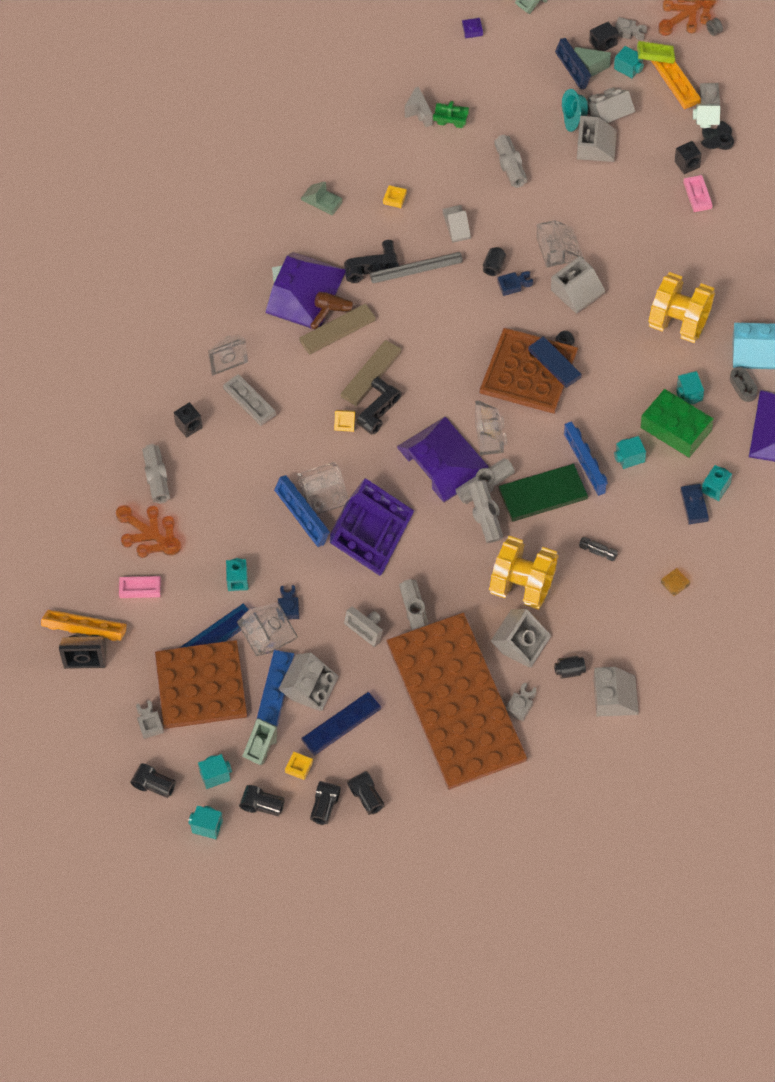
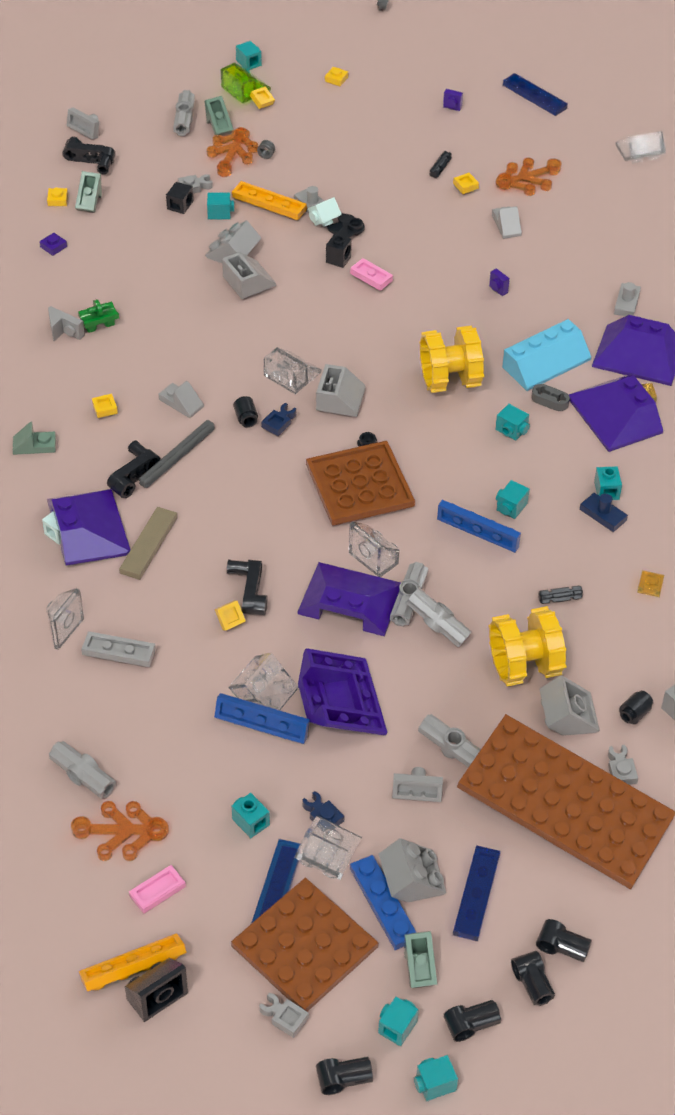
camera: 40 degrees left, 10 degrees down
(188, 419) = (73, 700): black brick -> none
(299, 765) = (475, 959): yellow plate -> none
(327, 303) = (123, 522): reddish brown piece -> none
(374, 367) = (215, 563): dark tan tile -> none
(510, 161) = (186, 326): light grey piece -> none
(543, 492) = (467, 575): dark green tile -> none
(554, 361) = (380, 461): dark blue tile -> none
(573, 63) = (171, 228): dark blue tile -> none
(573, 107) = (205, 260): teal piece -> none
(594, 60) = (184, 219): sand green slope -> none
(655, 52) = (239, 185): lime plate -> none
(676, 423) = (529, 454): green brick -> none

